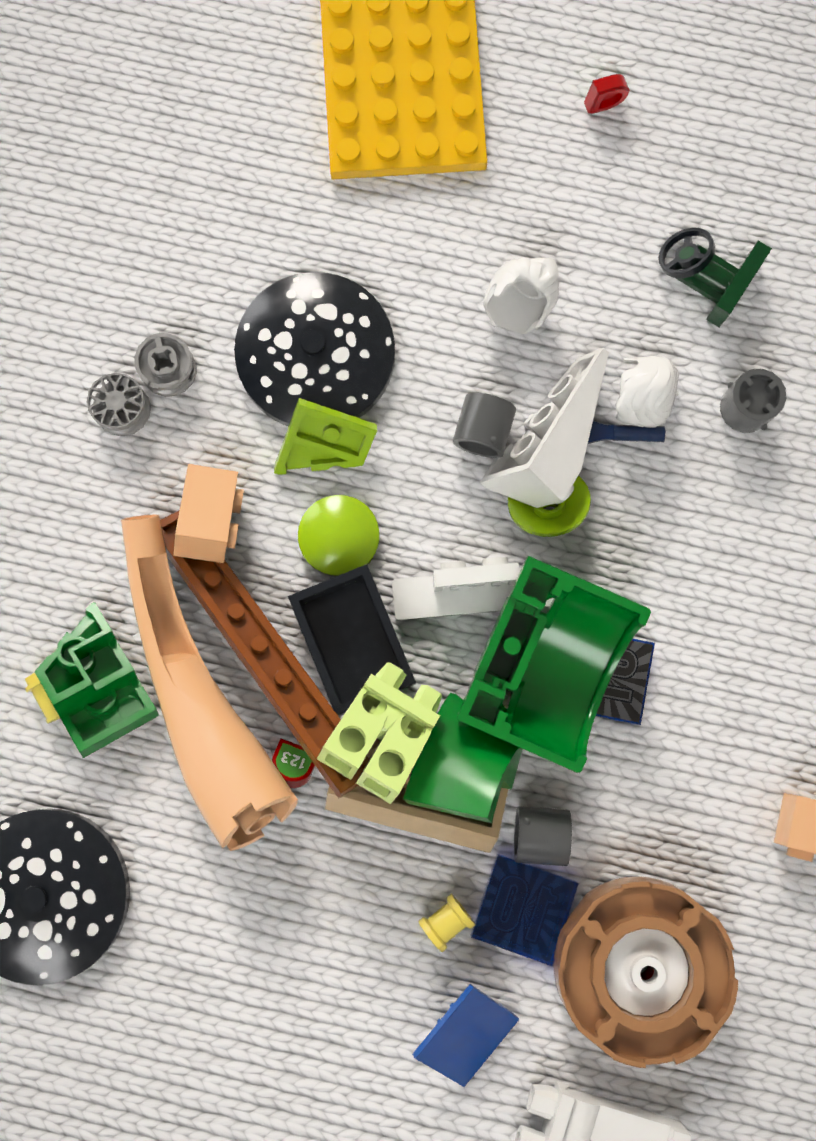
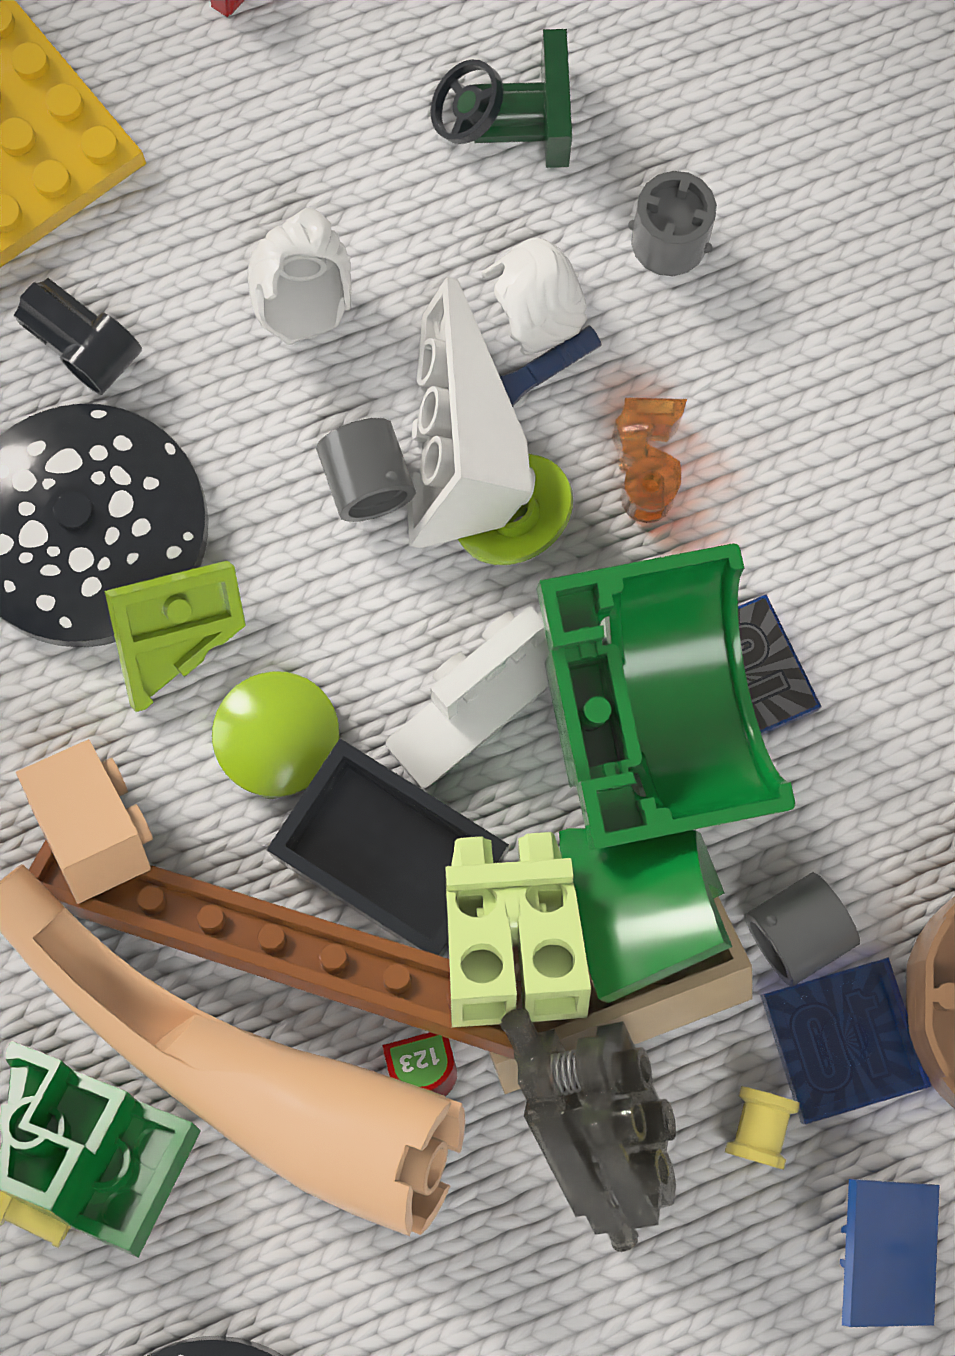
camera: 35 degrees left, 5 degrees down
(358, 861) = (597, 1124): none -> clear smoke piece
(383, 252) = (88, 345): none -> black piece
(639, 535) = (651, 474): none -> clear orange leg

